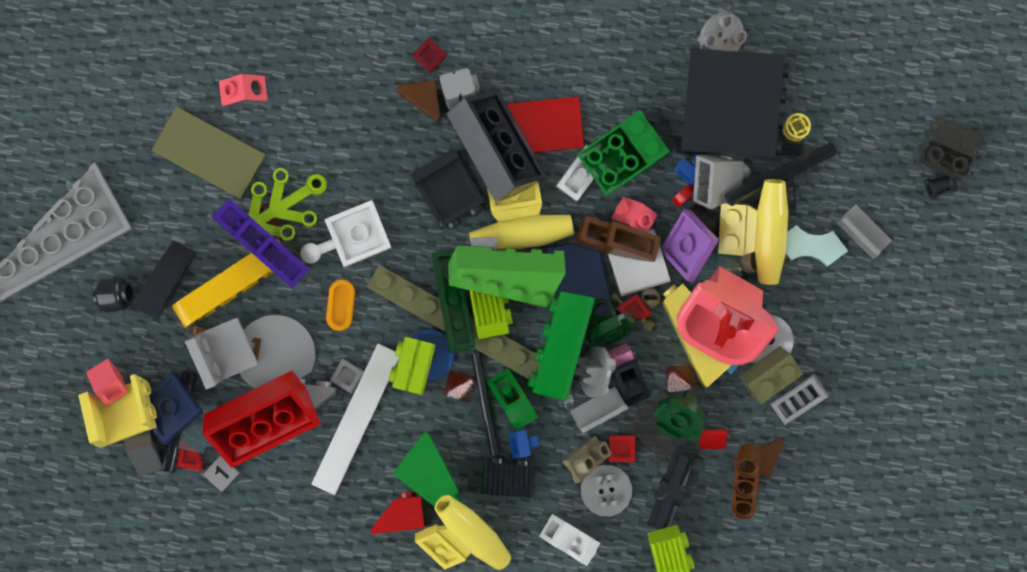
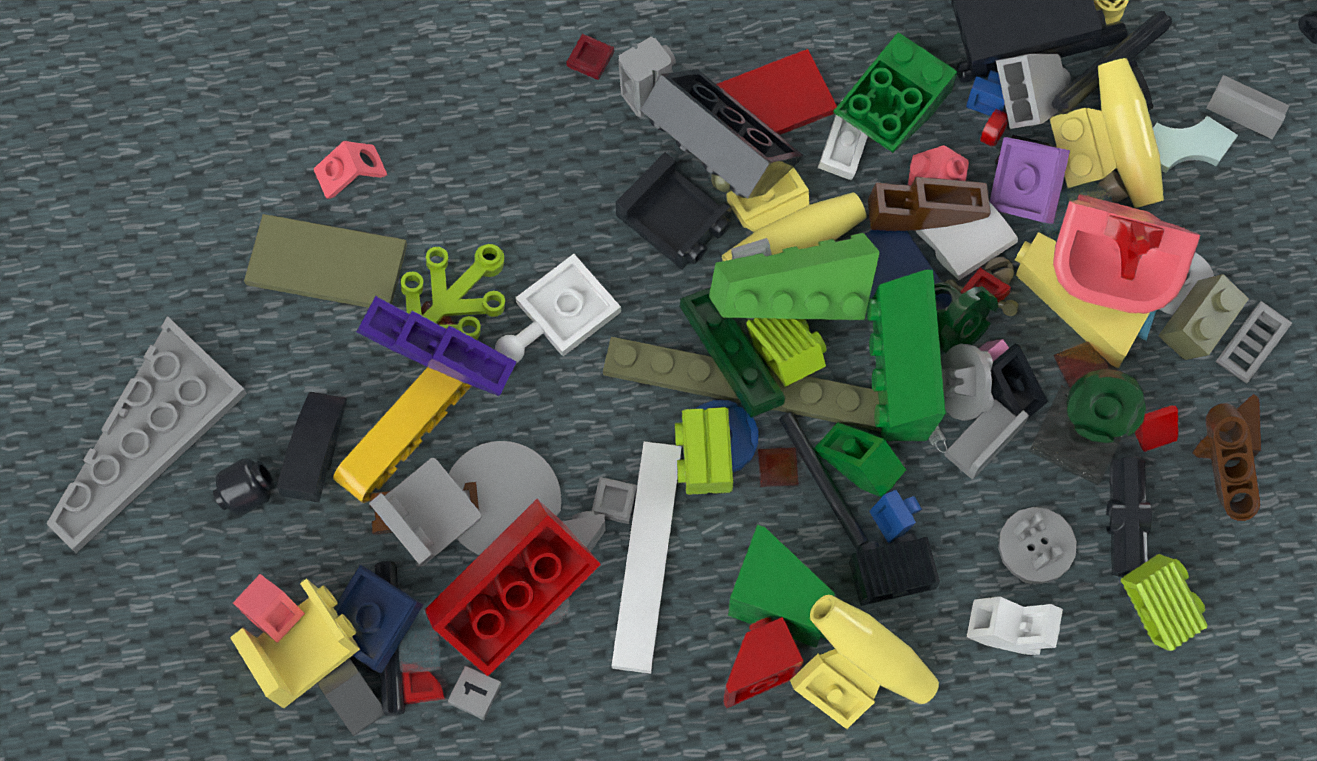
camera: 20 degrees left, 15 degrees down
(340, 305) = (574, 408): light orange tile -> none
(423, 97) = (599, 107): reddish brown slope -> none
(586, 458) = (995, 504): dark tan hips -> none
(622, 448) = (1037, 480): red plate -> none

